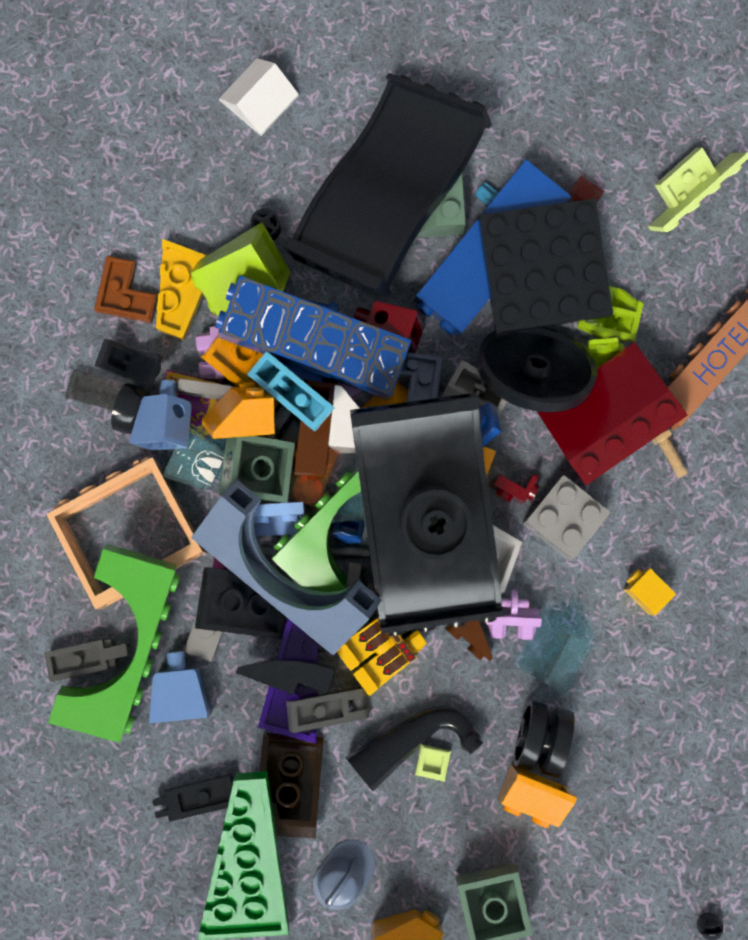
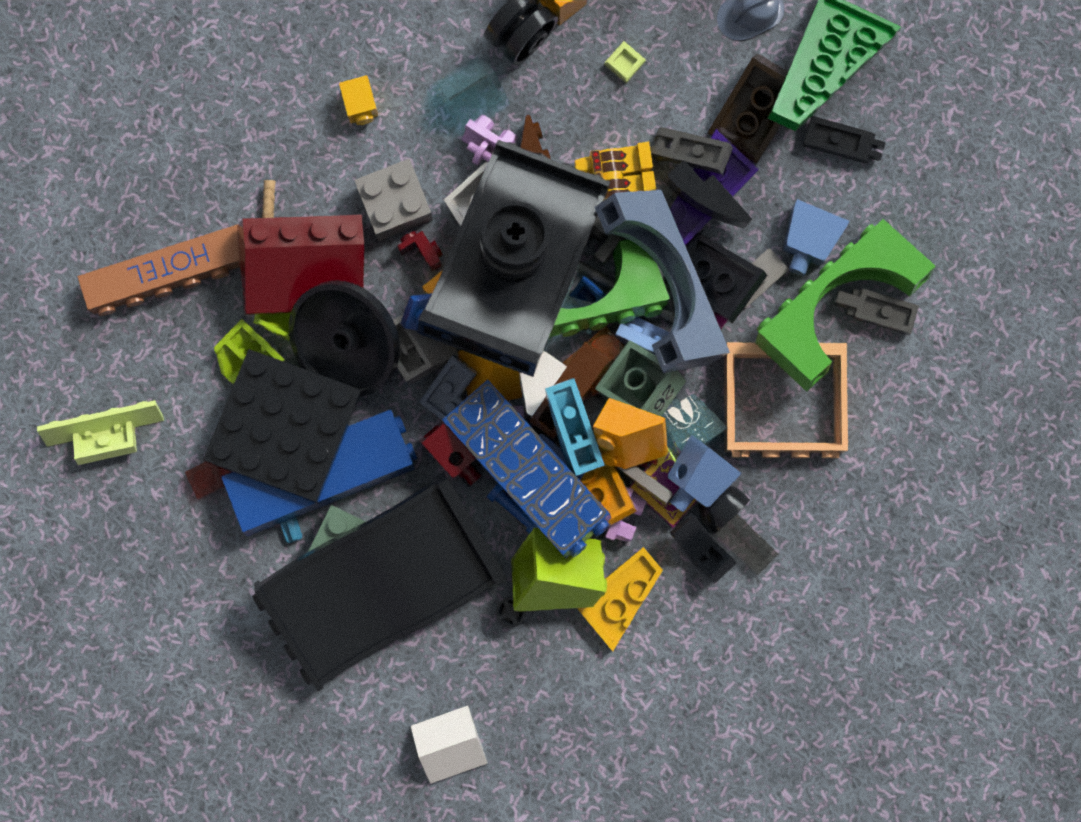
camera: 155 degrees left, 0 degrees up
(118, 298) = (683, 621): dark orange tile -> none
(390, 749) = (656, 90): black animal -> none

